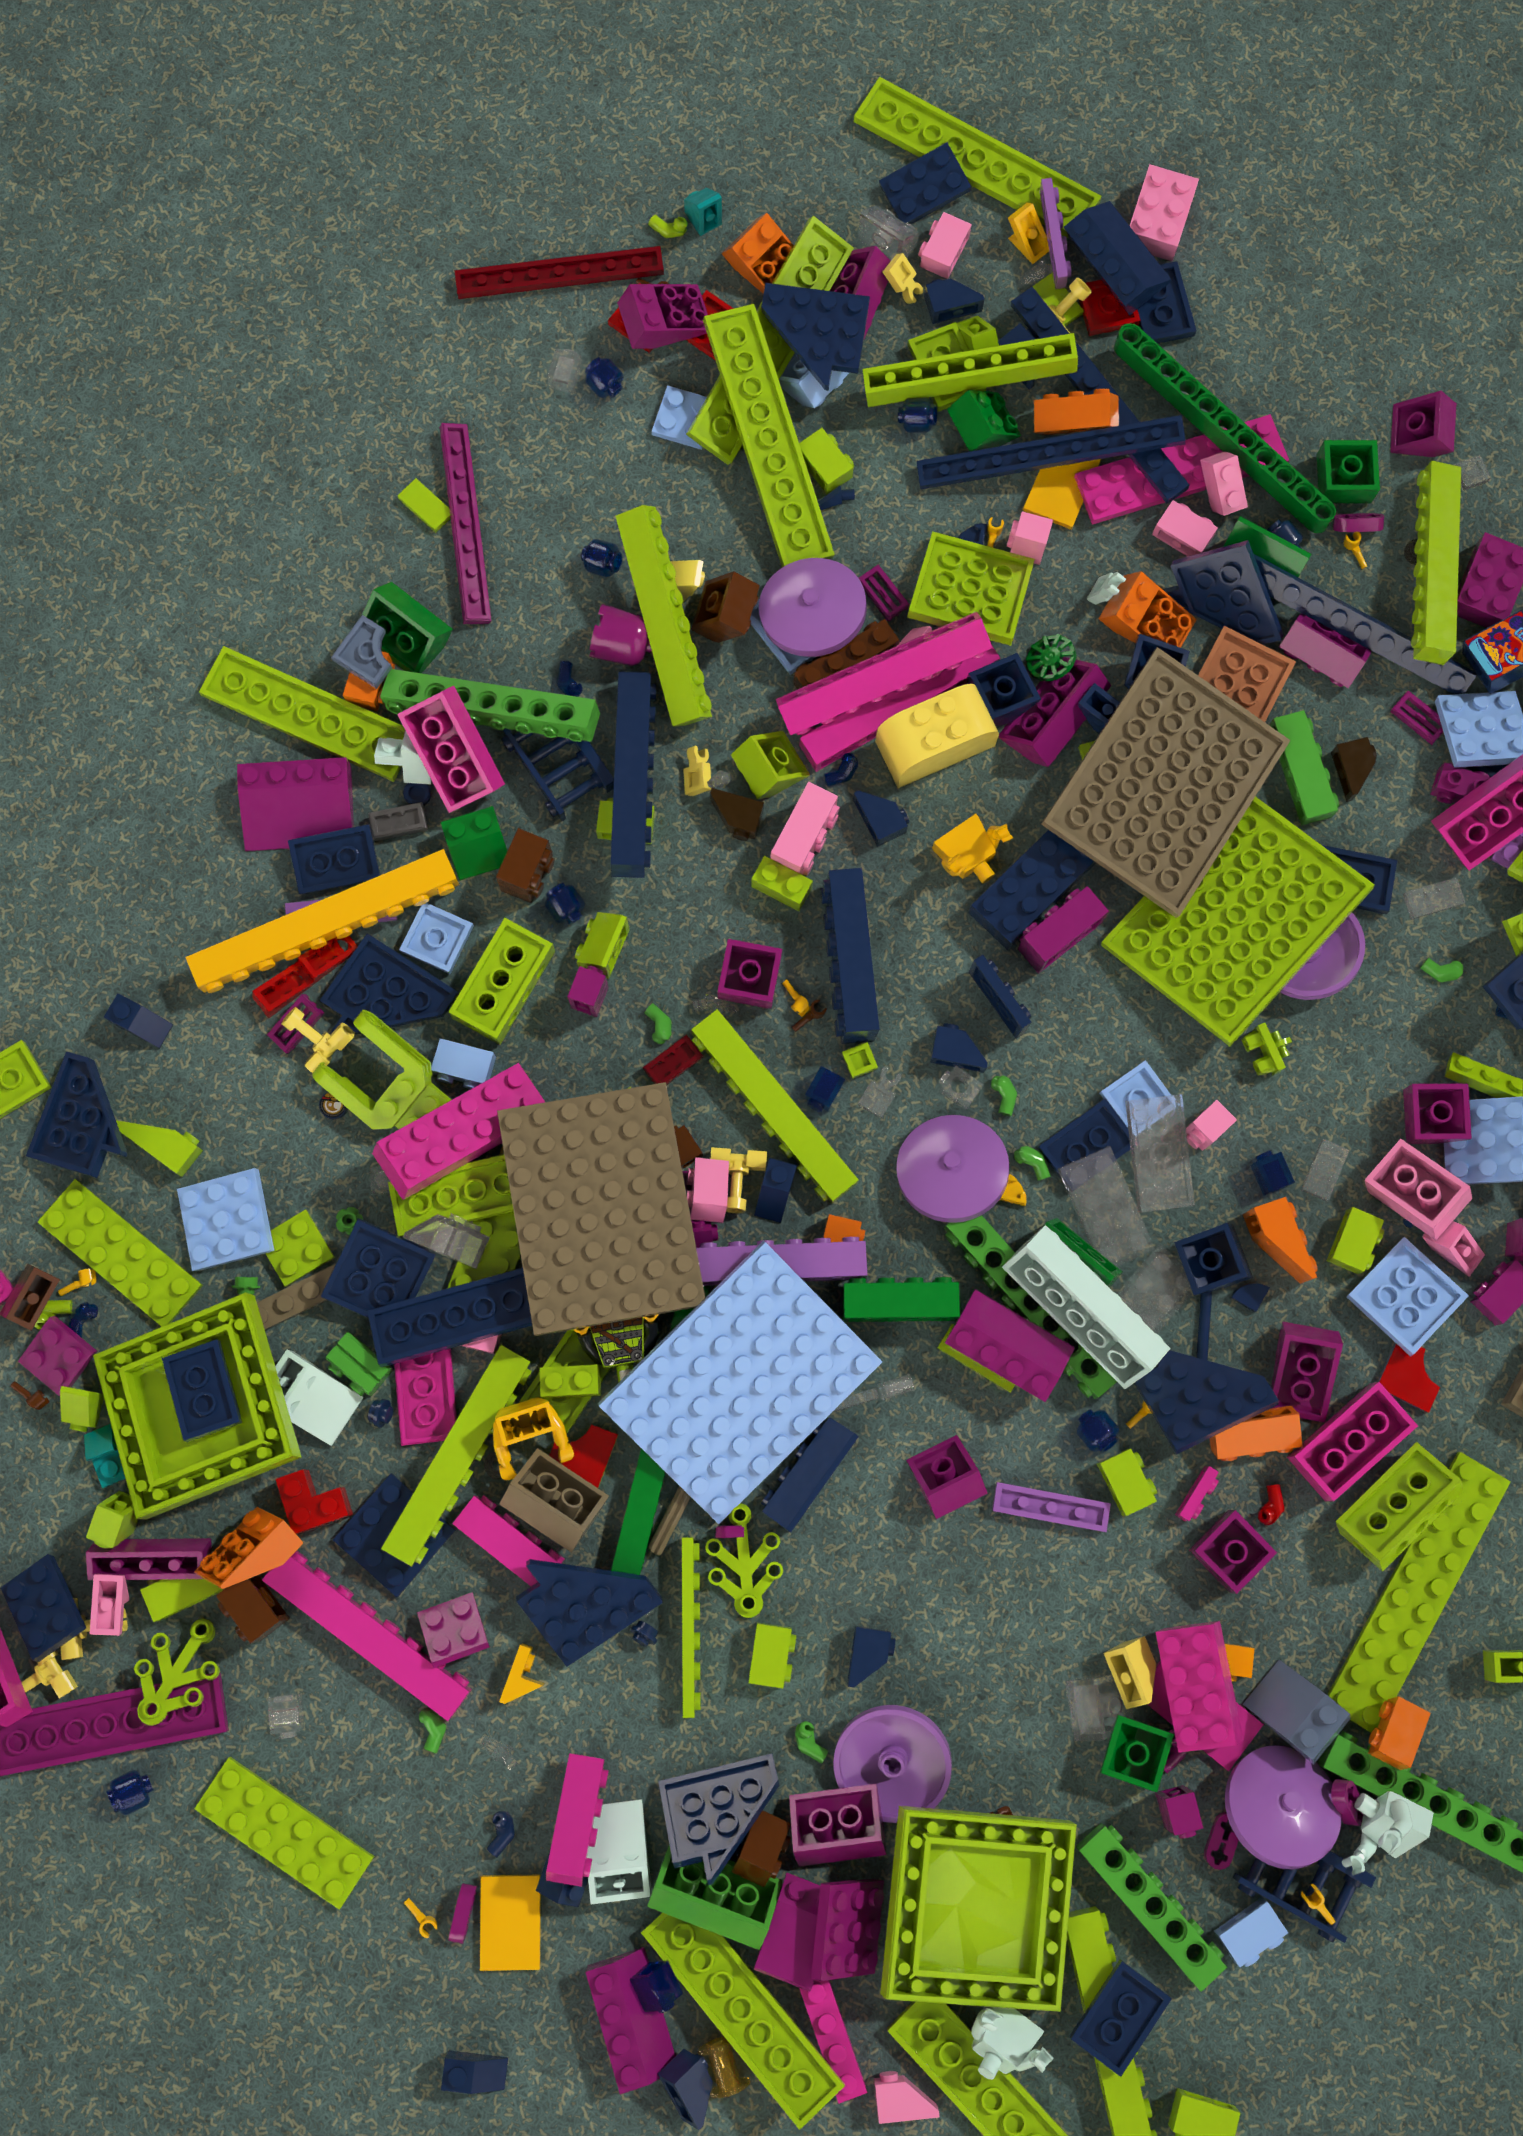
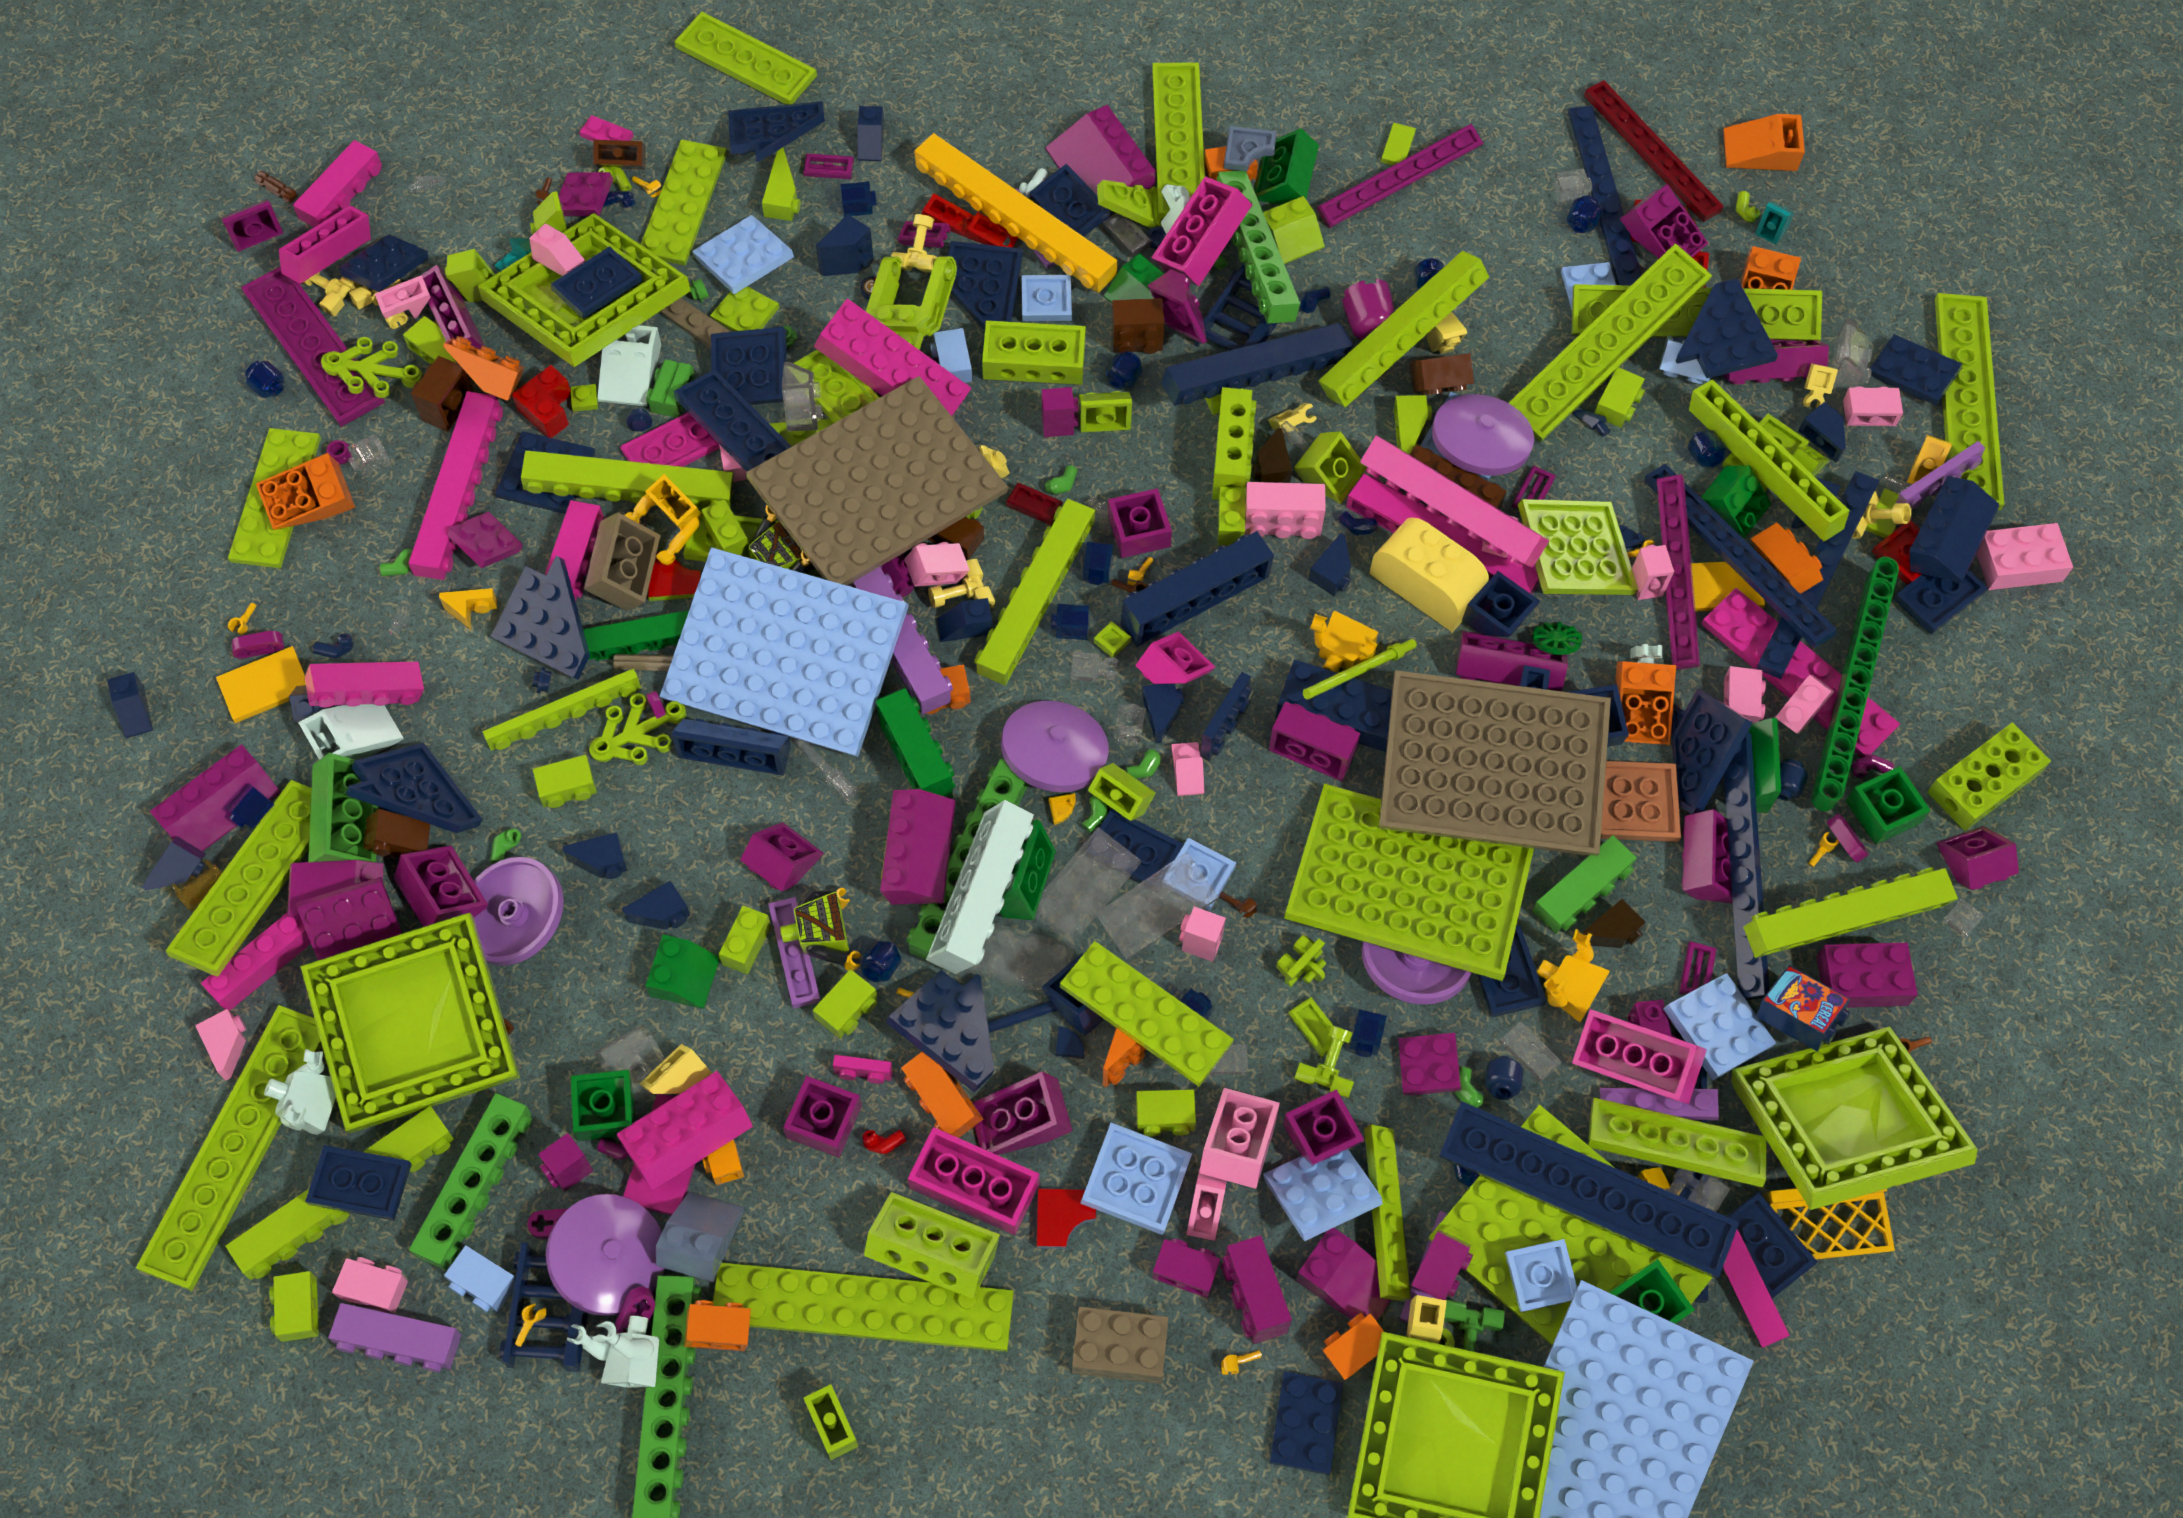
camera: 65 degrees right, 15 degrees down
(142, 1417) = (554, 250): none -> bright pink slope
(162, 1086) = (828, 170): none -> magenta tile
(216, 1071) = (857, 198): none -> clear blue brick
(253, 1748) = (336, 446): none -> magenta plate
(281, 1110) = (845, 248): none -> dark blue slope
(288, 880) = (1040, 176): none -> light aqua arm
(305, 1799) = (306, 493): none -> orange slope
(321, 1458) = (584, 397): none -> lime plate
(370, 799) = (1130, 202): none -> lime wing
(481, 656) = (1294, 229): none -> lime slope
(531, 814) = (1179, 305): none -> magenta slope
(591, 346) = (1604, 191): none -> dark blue plate
(608, 1079) = (996, 460): none -> light yellow plate
(609, 166) = (1765, 143): none -> orange slope
(689, 834) = (1234, 439): none -> lime brick
(759, 665) = (1410, 420): none -> lime slope
(771, 1034) = (1097, 563): none -> clear blue brick
(923, 1015) = (1173, 661): none -> dark pink slope
(951, 1616) = (658, 909): none -> dark blue slope
(998, 811) = (1392, 653): none -> lime bar
(1014, 502) = (1680, 588): none -> magenta tile
(1021, 1548) = (745, 940): none -> lime brick
(1026, 1056) = (1188, 768): none -> bright pink slope
(1027, 1621) = (682, 972): none -> green slope
(1029, 1129) = (1121, 791): none -> lime brick
(1045, 1471) = (822, 928): none -> torso
(1189, 1072) = (1248, 906): none -> reddish brown hand
(1213, 2040) = (370, 1286): none -> bright pink brick
(1272, 2035) = (395, 1337): none -> medium lavender brick
(1281, 1216) = (1146, 1013): none -> lime plate
(1299, 456) = (1863, 765): none -> magenta arm
(1329, 1069) = (1313, 1025): none -> lime tile
(1357, 372) = (1988, 776): none -> lime brick
(1359, 1028) = (1367, 1033): none -> clear blue brick
(1378, 1082) = (1325, 1073): none -> lime bar
(1391, 828) = (1575, 981): none -> yellow torso
(1409, 990) = (1429, 1064): none -> magenta plate
(1450, 933) = (1504, 1077): none -> dark blue head

